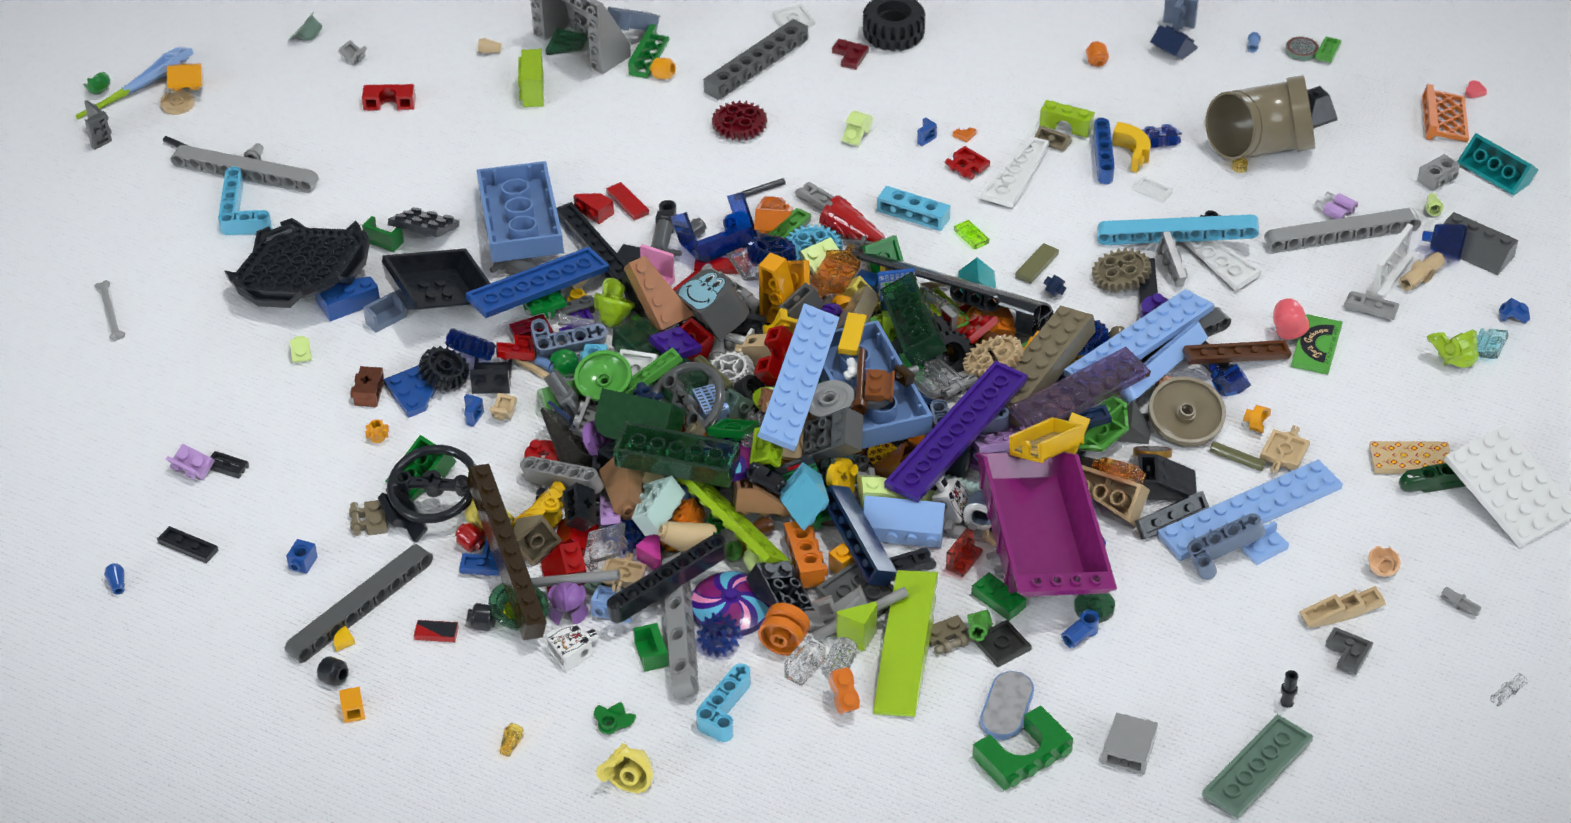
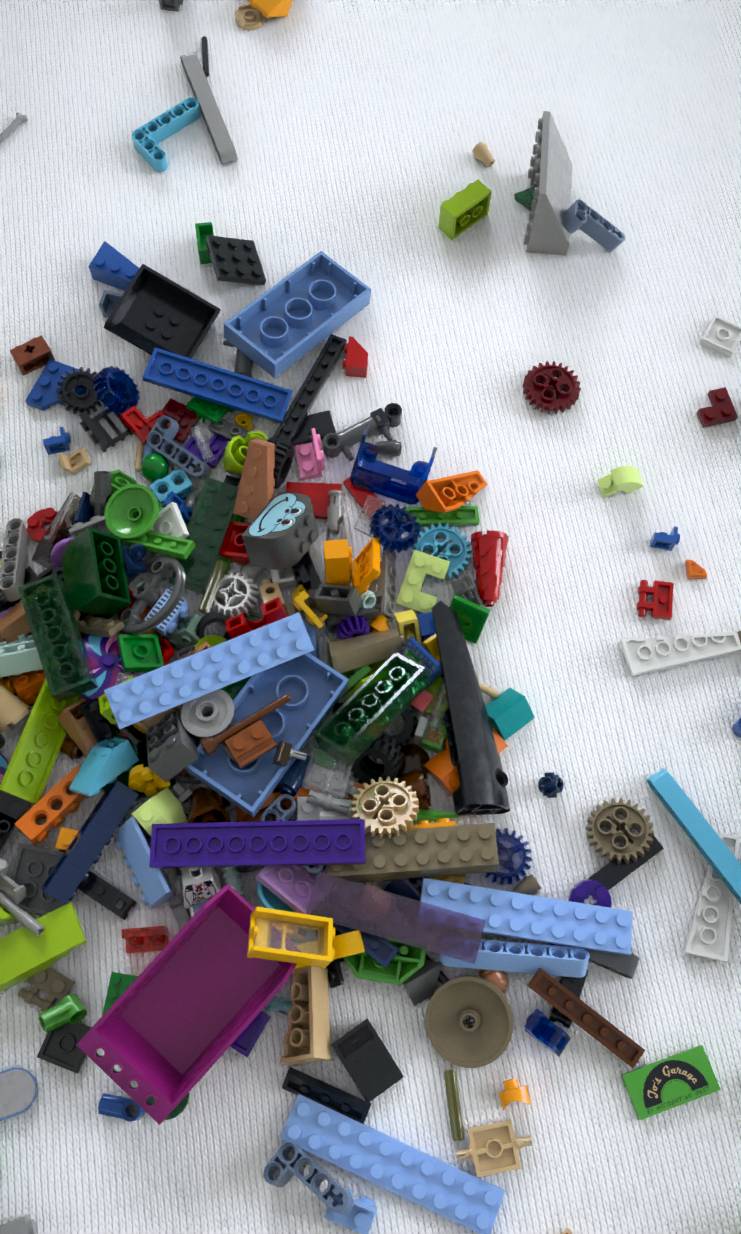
camera: 50 degrees right, 25 degrees up
(255, 151) = (229, 101): light grey cone -> none
(299, 262) = (119, 216): black plate -> none
(300, 349) = (41, 282): yellowish green bracket -> none
(309, 29) = (396, 32): sand green piece -> none
(352, 52) = (395, 76): light grey bracket -> none
(376, 95) = (373, 142): red arch -> none
(627, 201) = (386, 376): red tile -> none
(643, 53) = (574, 260): green fence -> none
(663, 68) = (565, 288): light orange head -> none
(678, 339) = (219, 535): dark purple plate -> none
(755, 59) = (640, 345): dark grey brick -> none
(758, 189) = (484, 461): black bar -> none
(814, 195) = (508, 513): light grey plate -> none
(837, 263) = (420, 586): clear orange plate -> none
(852, 334) = (309, 672): yellow tile -> none
(852, 369) = (254, 706): white arm -> none
(913, 208) = (559, 625): medium azure brick -> none
(971, 234) = (566, 666): clear neon green plate -> none
(977, 327) = (423, 760): red plate -> none
(1037, 263) = (574, 747): olive tile -> none
(1119, 469) = (319, 1025): clear orange plate -> none
(1158, 450) = (393, 1023): tile -> none
(1172, 258) = (658, 887): light grey wing -> none
(1290, 319) = (675, 1039): coral piece -> none

